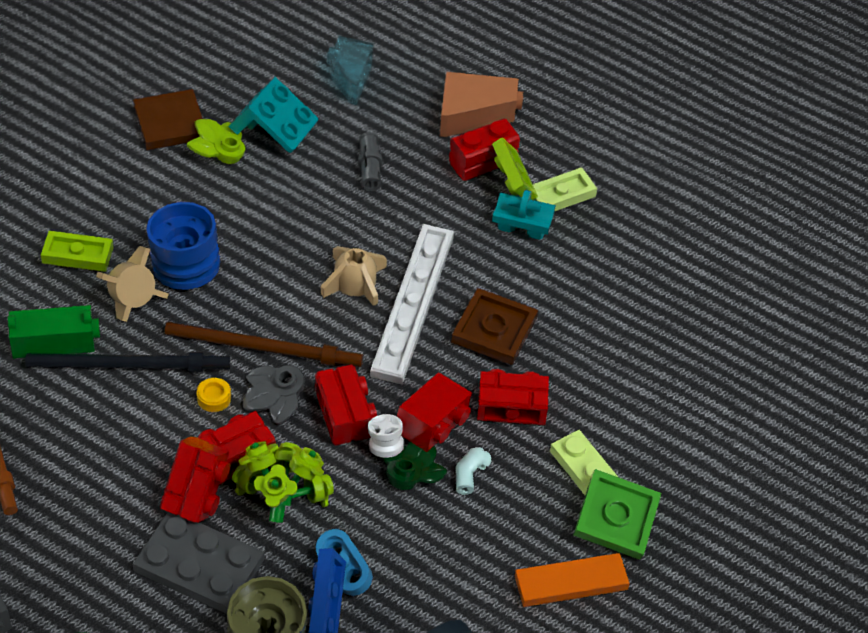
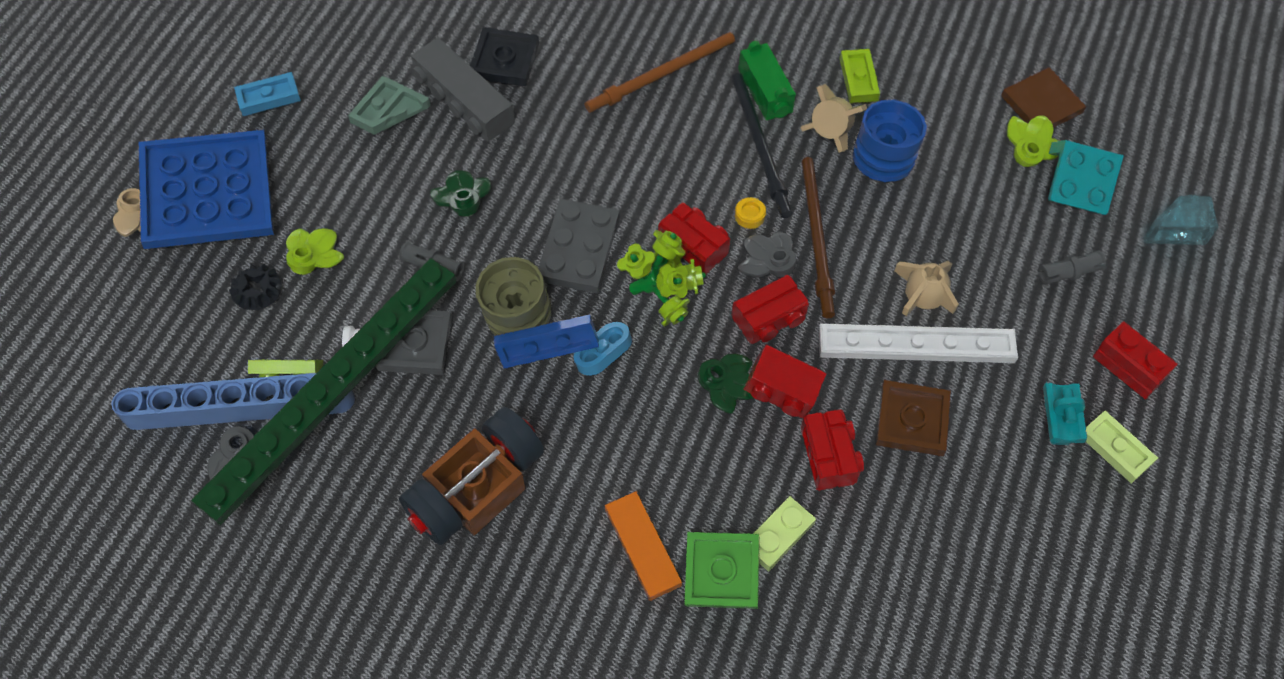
camera: 80 degrees right, 10 degrees up
(195, 479) = (642, 211): red brick -> none
(385, 435) = (743, 348): white wheel -> none
(465, 468) = (738, 427): light aqua arm -> none
(477, 101) = (1197, 341): nougat slope -> none
(511, 164) = (1113, 389): lime plate -> none

